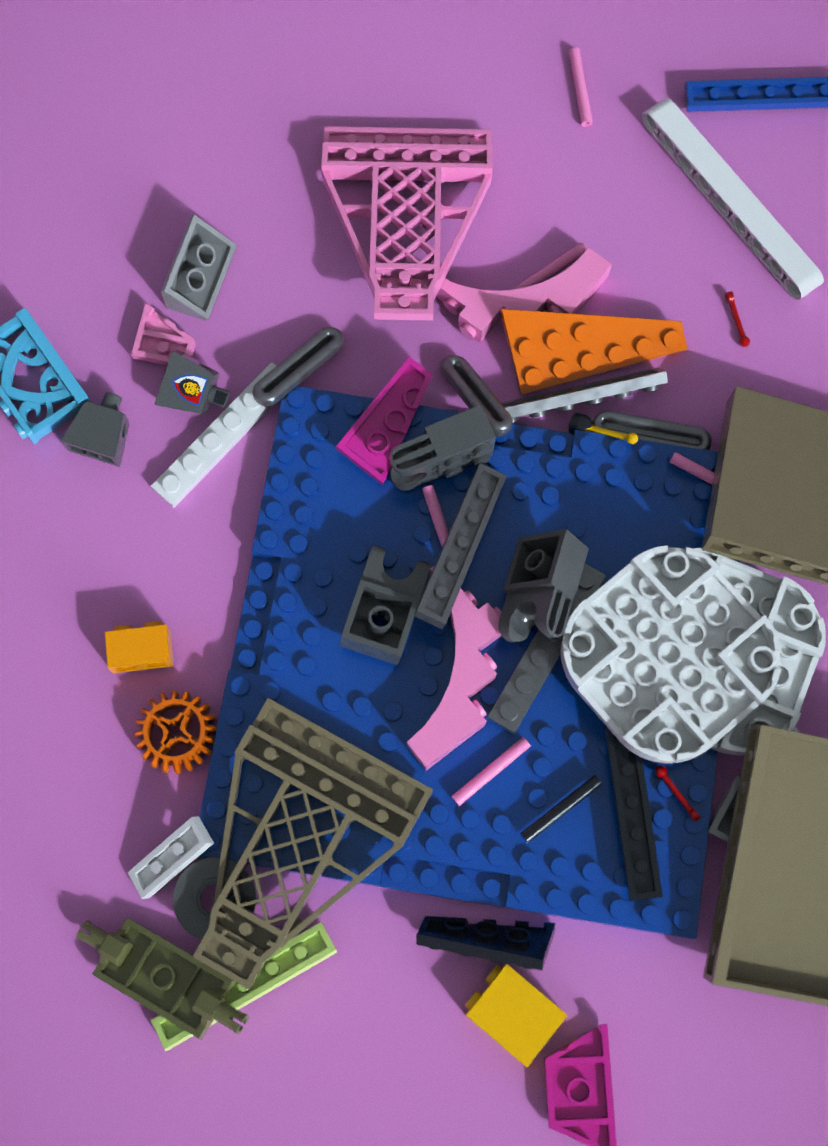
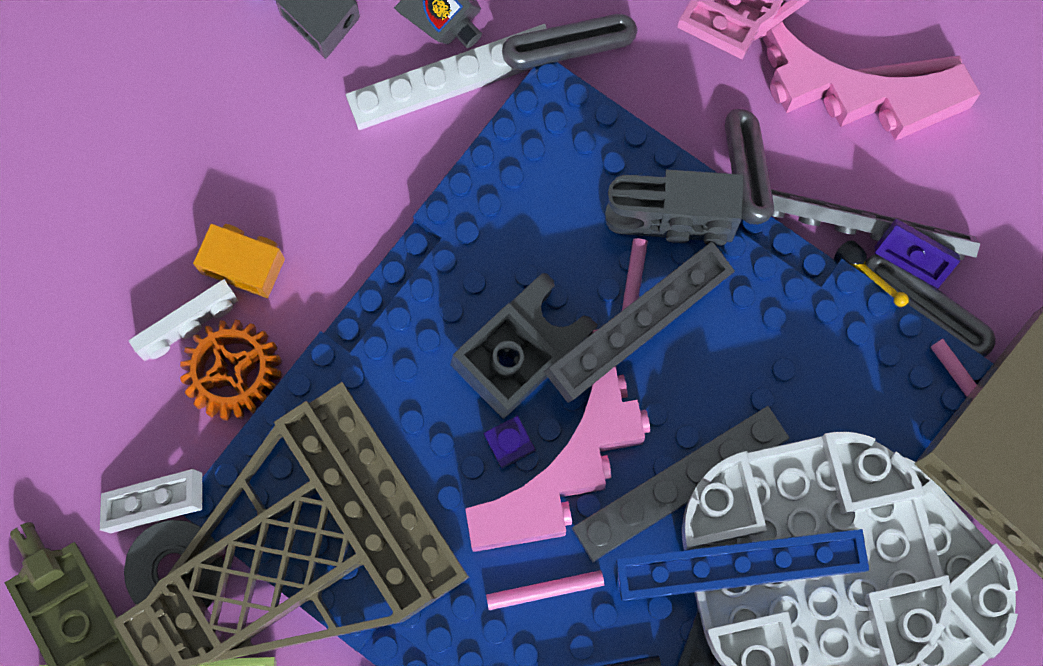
camera: 30 degrees right, 0 degrees up
(121, 714) = (184, 321): none -> white plate
(386, 421) = (632, 144): dark pink wing -> none
(410, 679) = (509, 442): none -> dark purple plate
(542, 584) = (708, 411): dark grey brick -> none
(571, 346) = (881, 163): orange wing -> none
(622, 680) = (742, 565): none -> blue plate
(626, 400) = (917, 253): none -> dark purple plate

